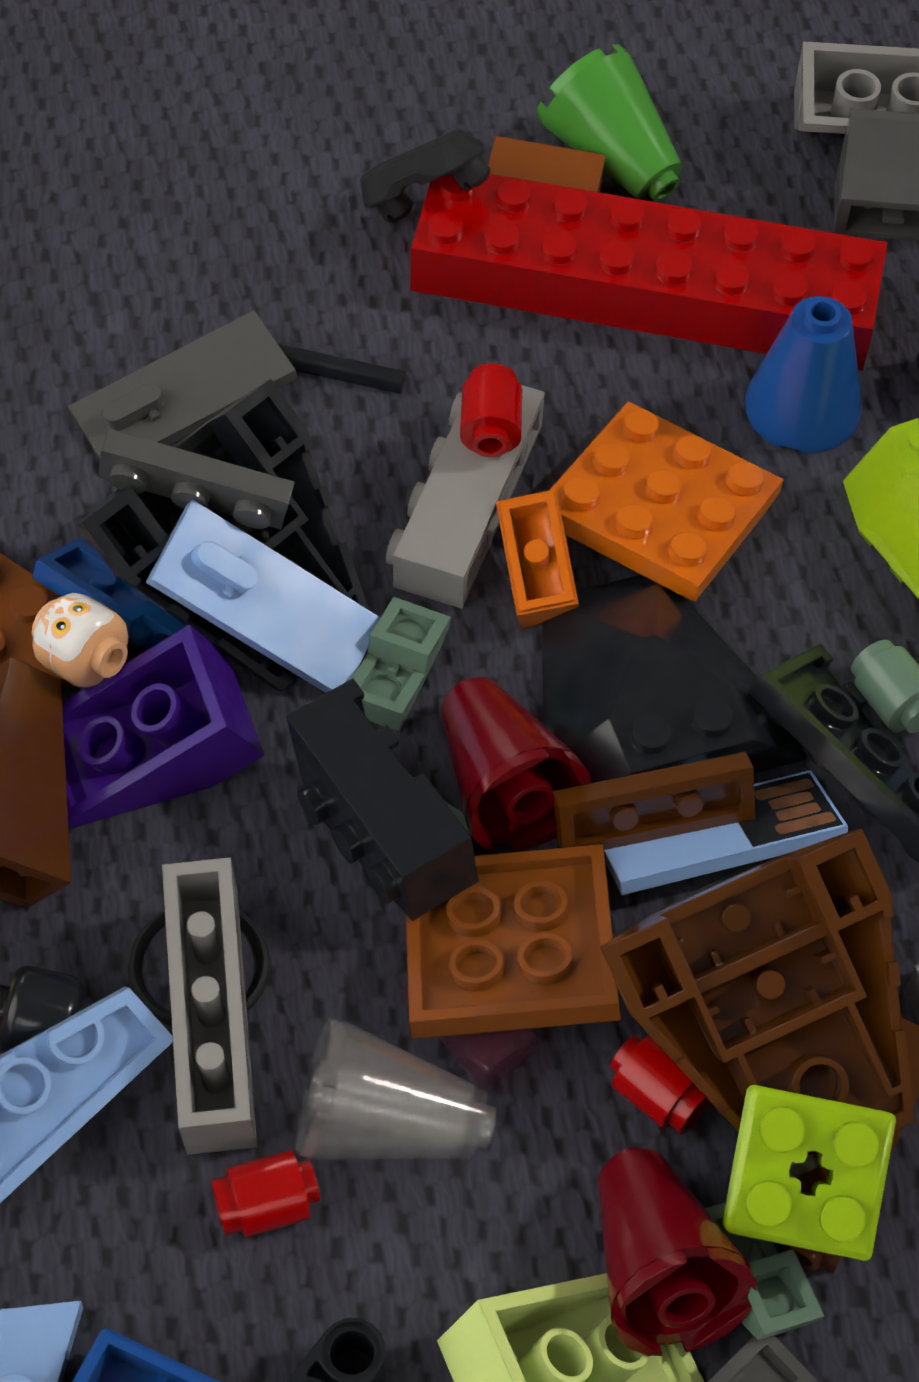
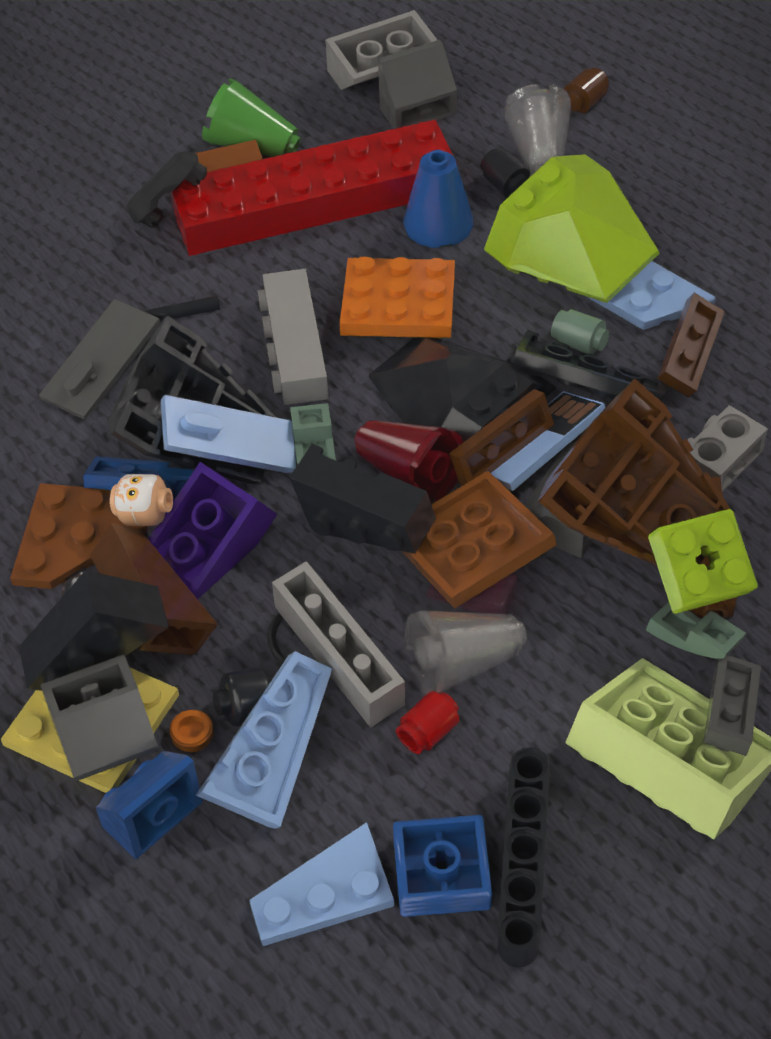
camera: 25 degrees left, 5 degrees down
(184, 476) = (151, 384): dark grey plate -> none
(491, 410) = (288, 286): red brick -> none
(537, 557) = (356, 351): orange slope -> none
(657, 1085) = (592, 569): red brick -> none
(666, 1258) = (656, 640): dark red cone -> none

